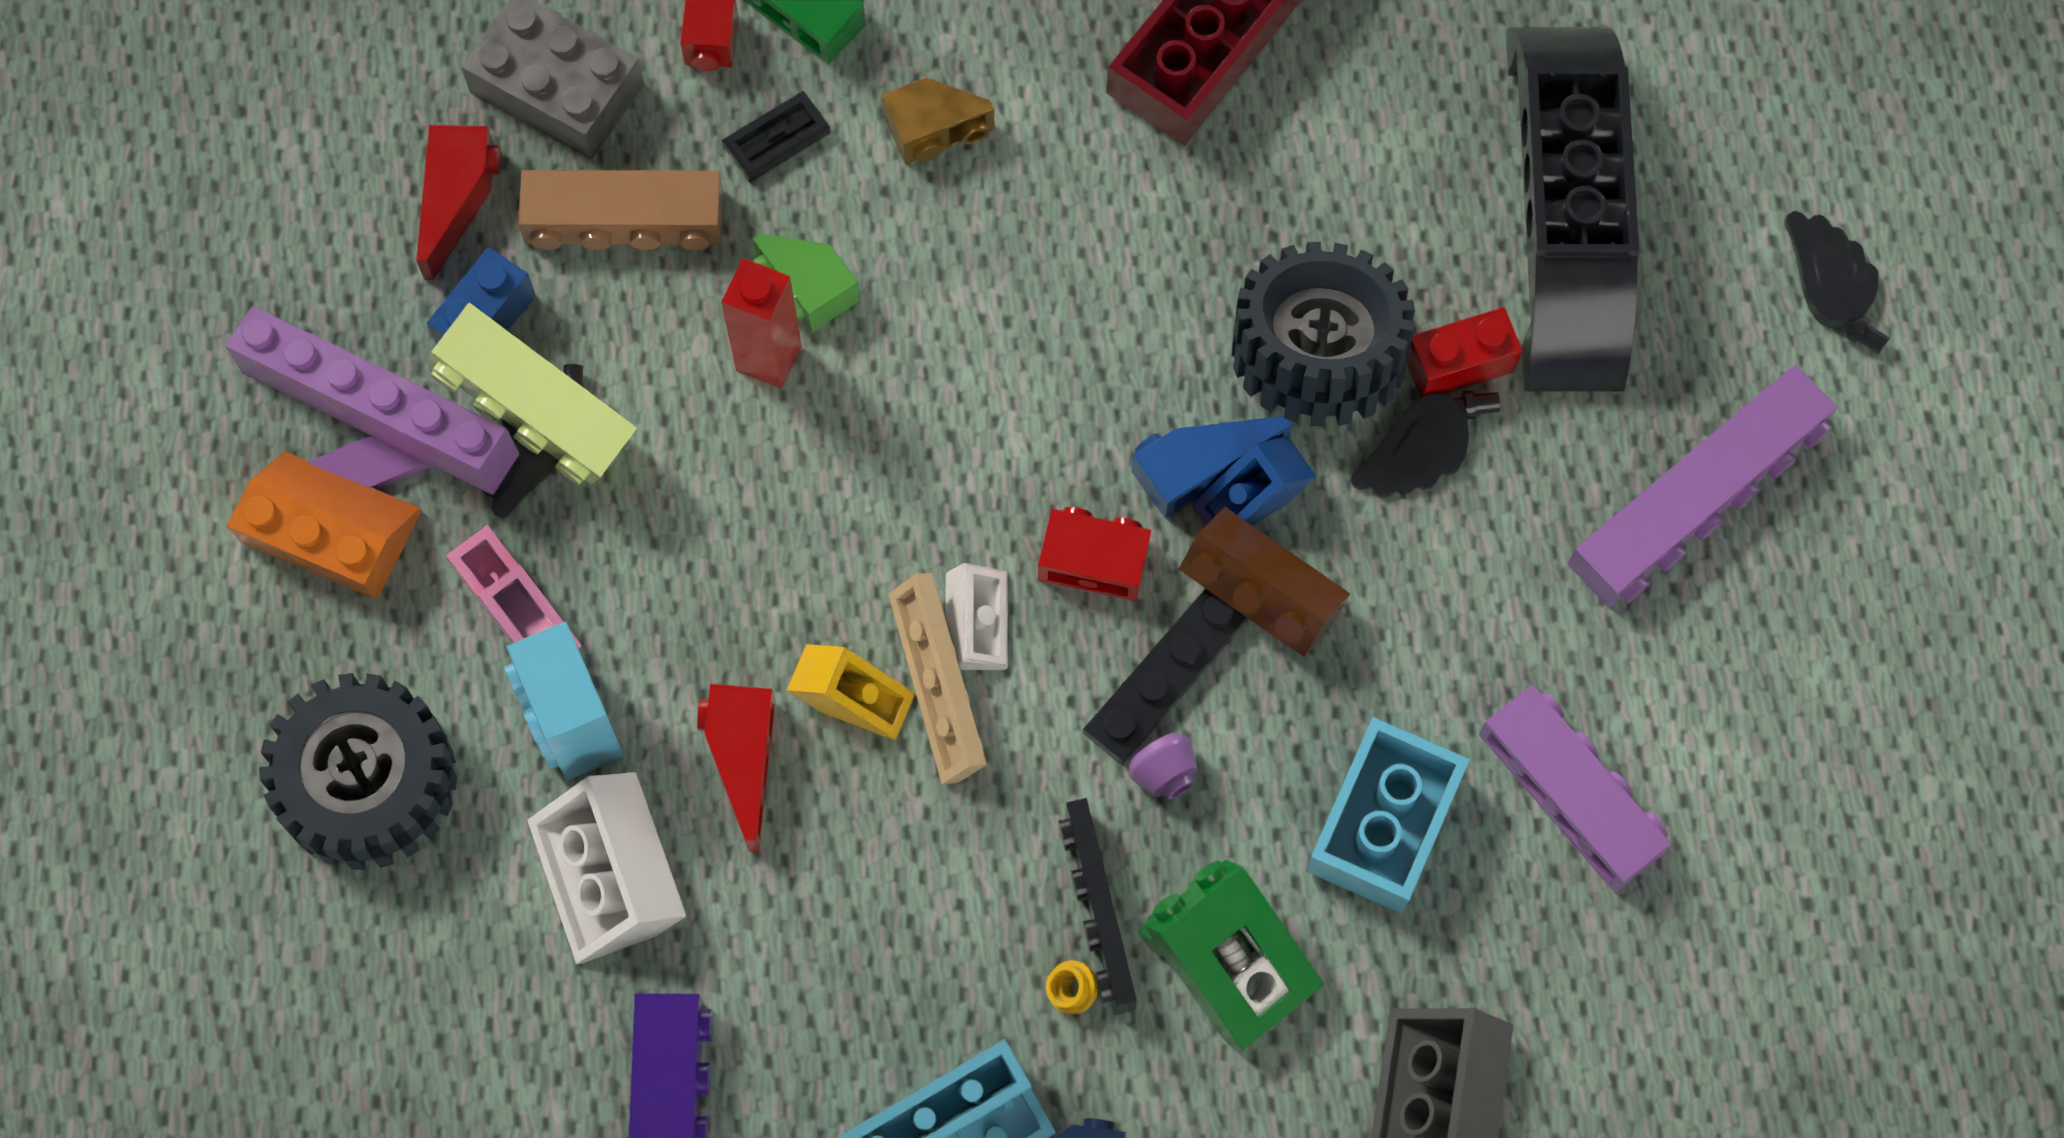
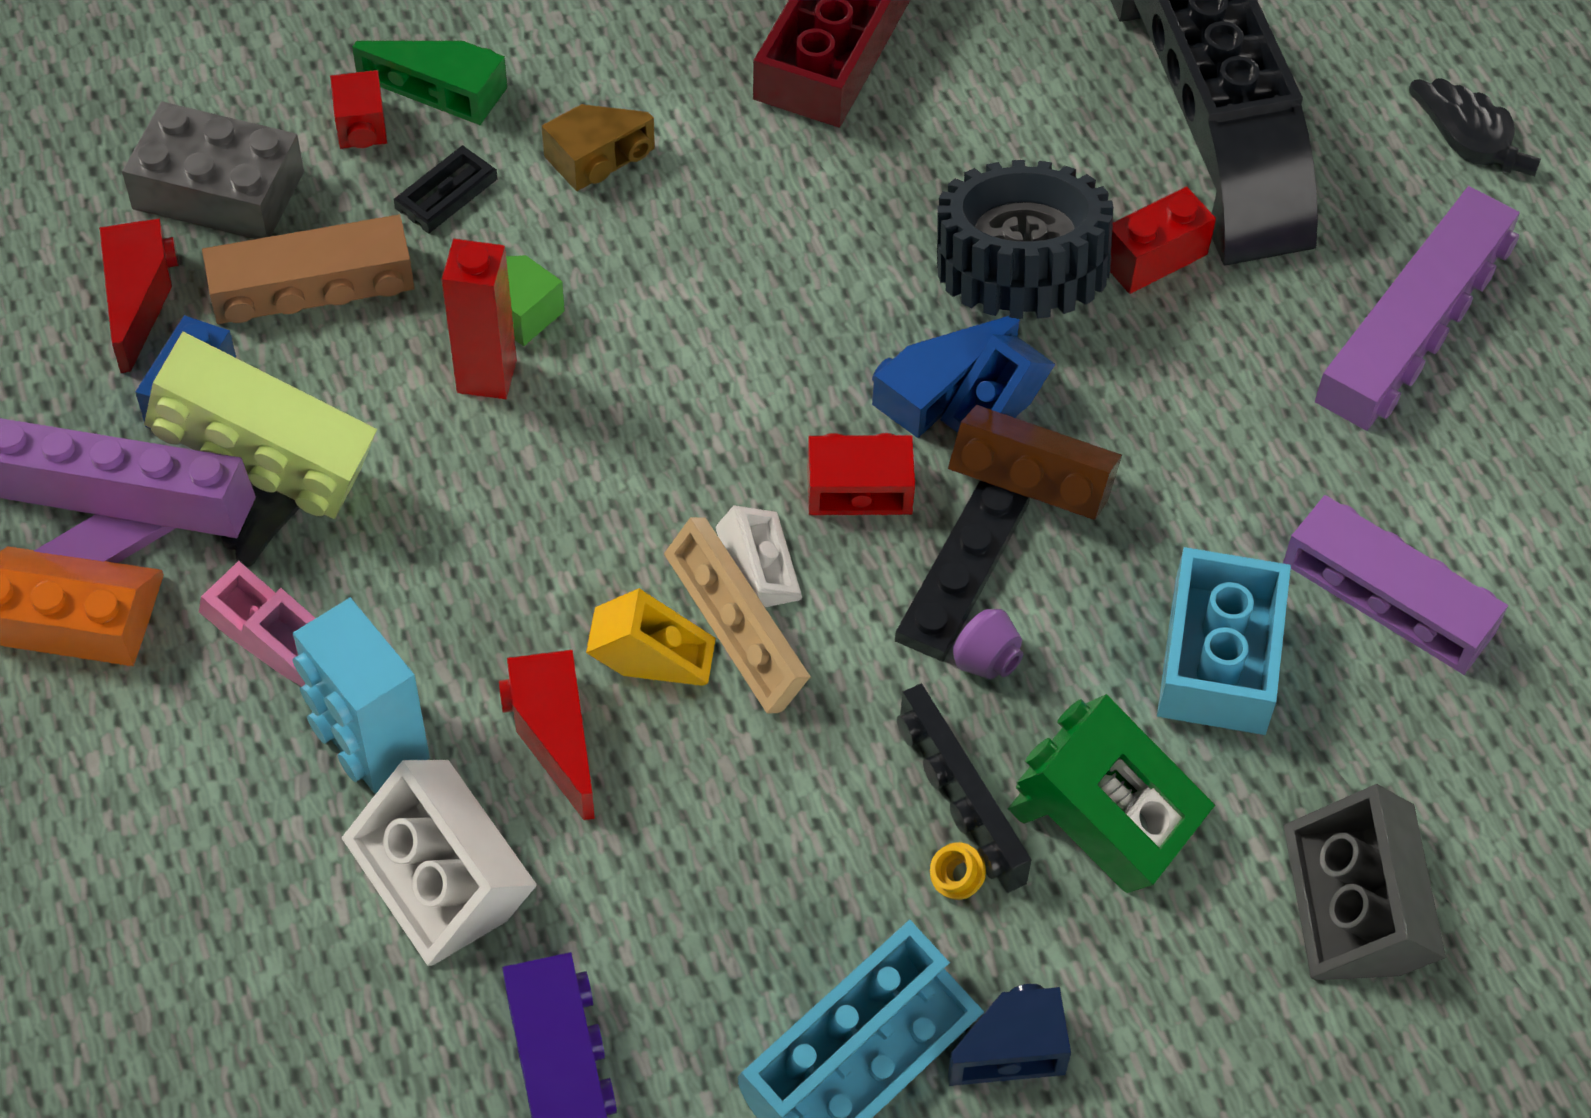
camera: 15 degrees left, 15 degrees down
(399, 810) = (123, 857): black wheel -> none
(1423, 444) = (1145, 326): black animal -> none

